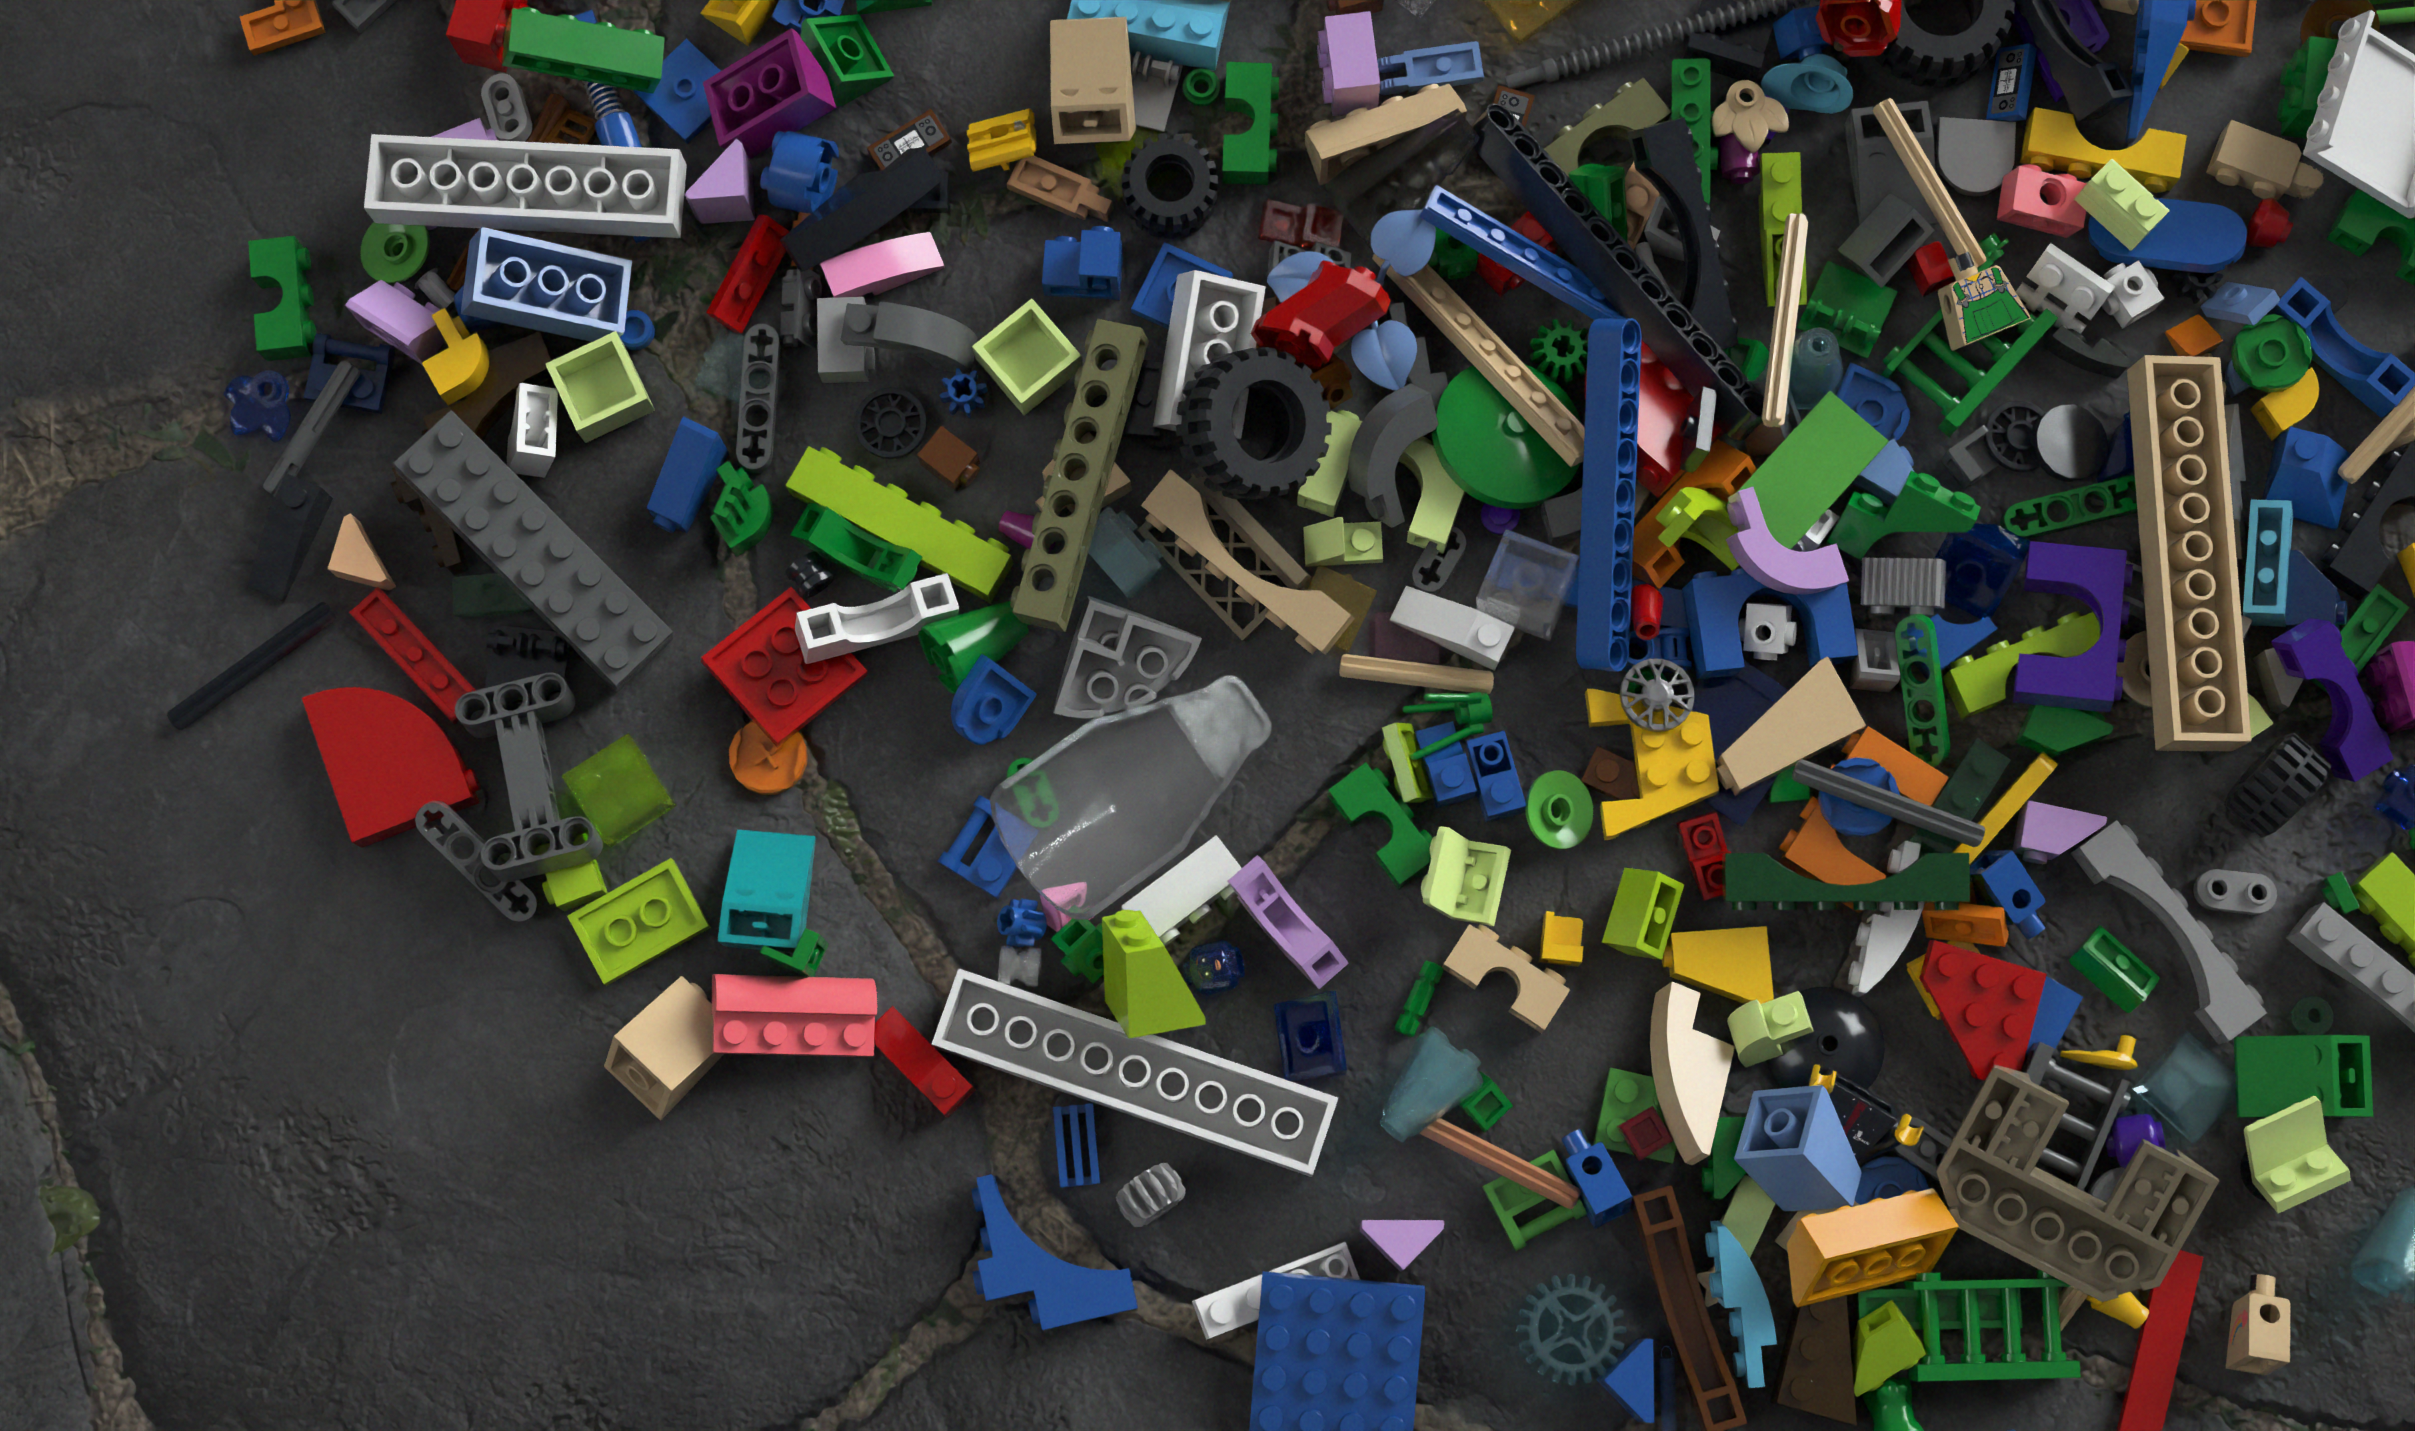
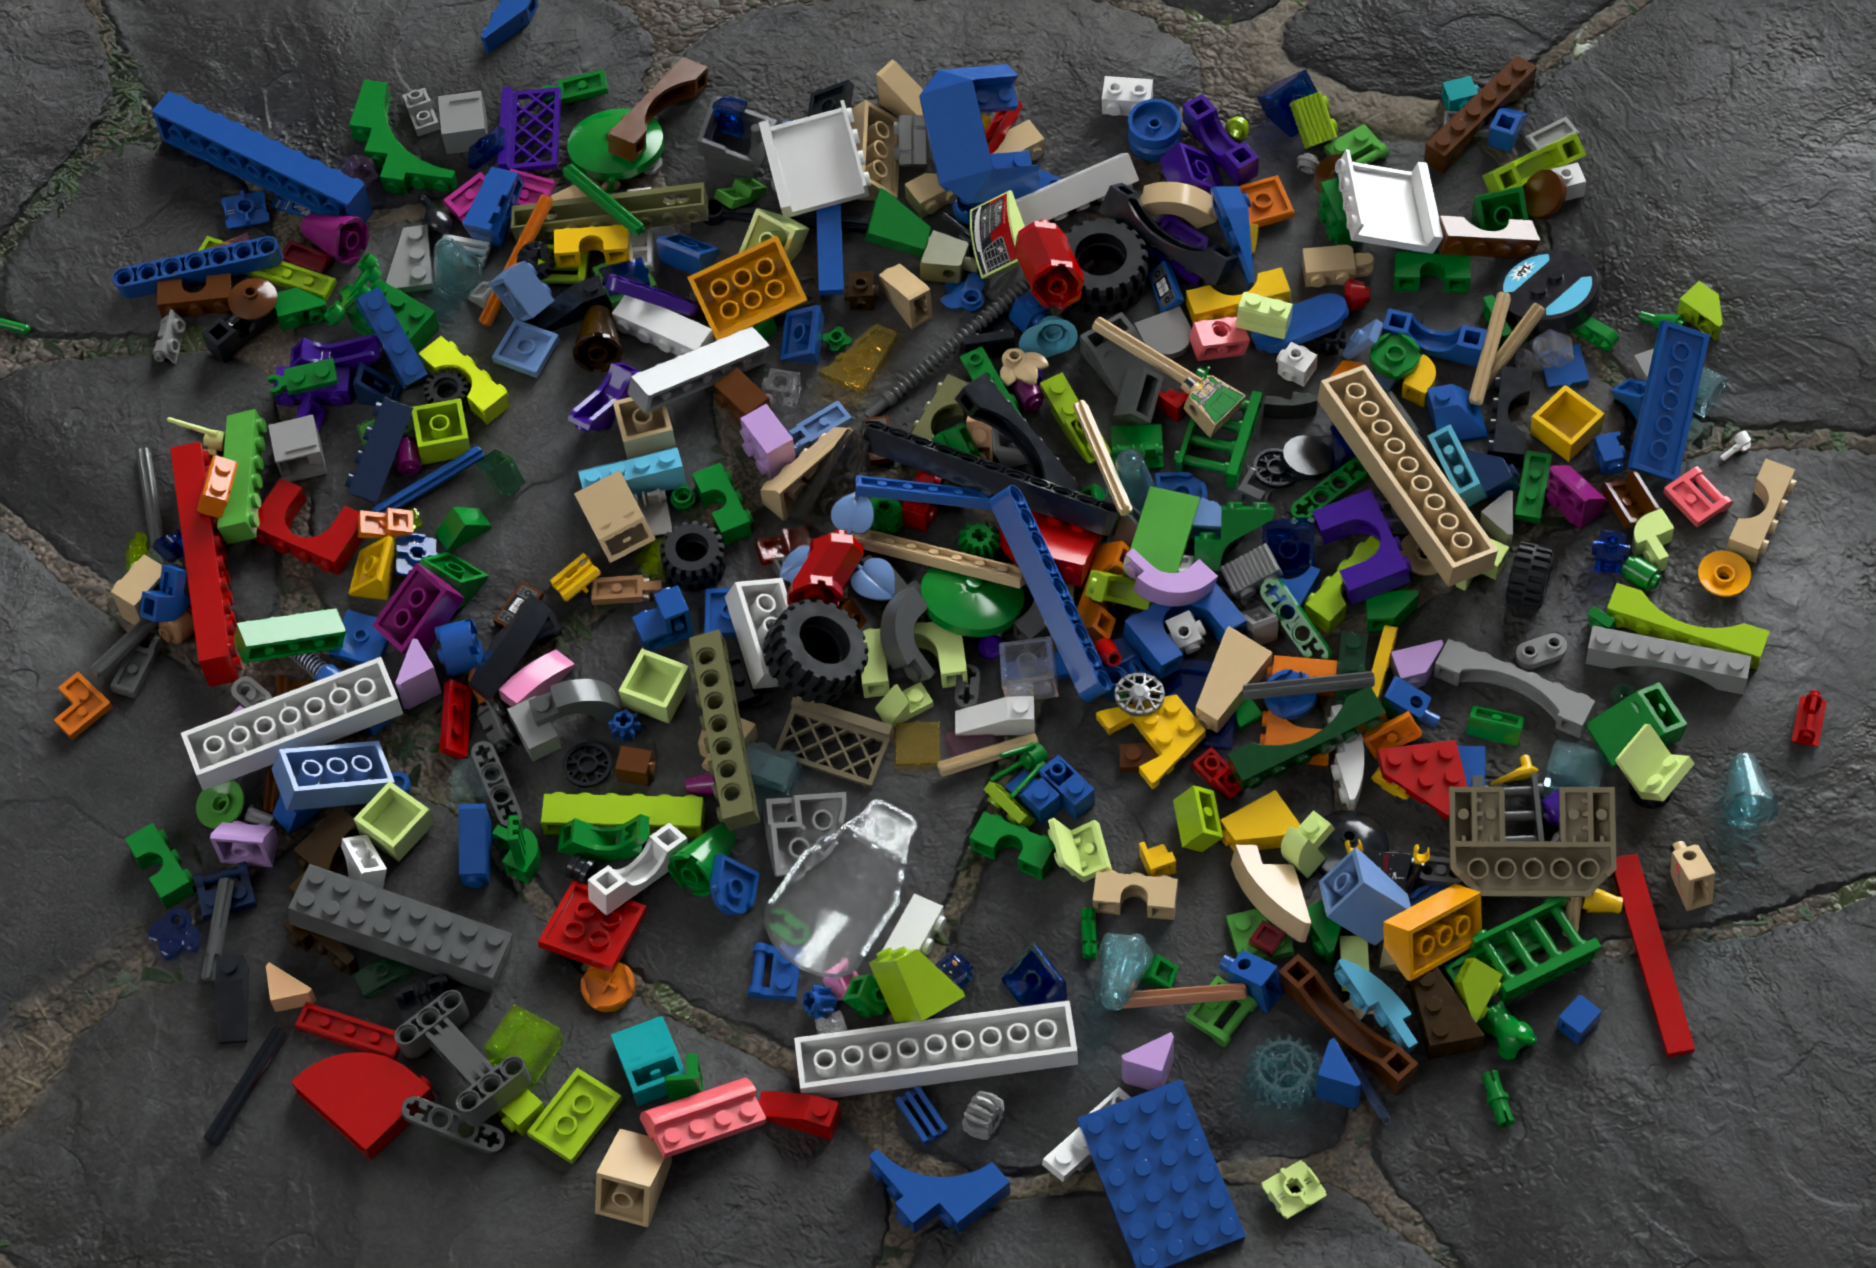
camera: 25 degrees left, 20 degrees down
(462, 365) = (299, 841): yellow brick -> none
(1186, 513) = (903, 746): tan arch -> none
(1286, 923) = (981, 927): lavender arch -> none
(1571, 809) = (1116, 787): bright green dish -> none
(1697, 430) = (1083, 535): plate -> none
(2070, 283) = (1258, 371): white plate -> none
(2354, 739) = (1512, 496): dark purple arch -> none

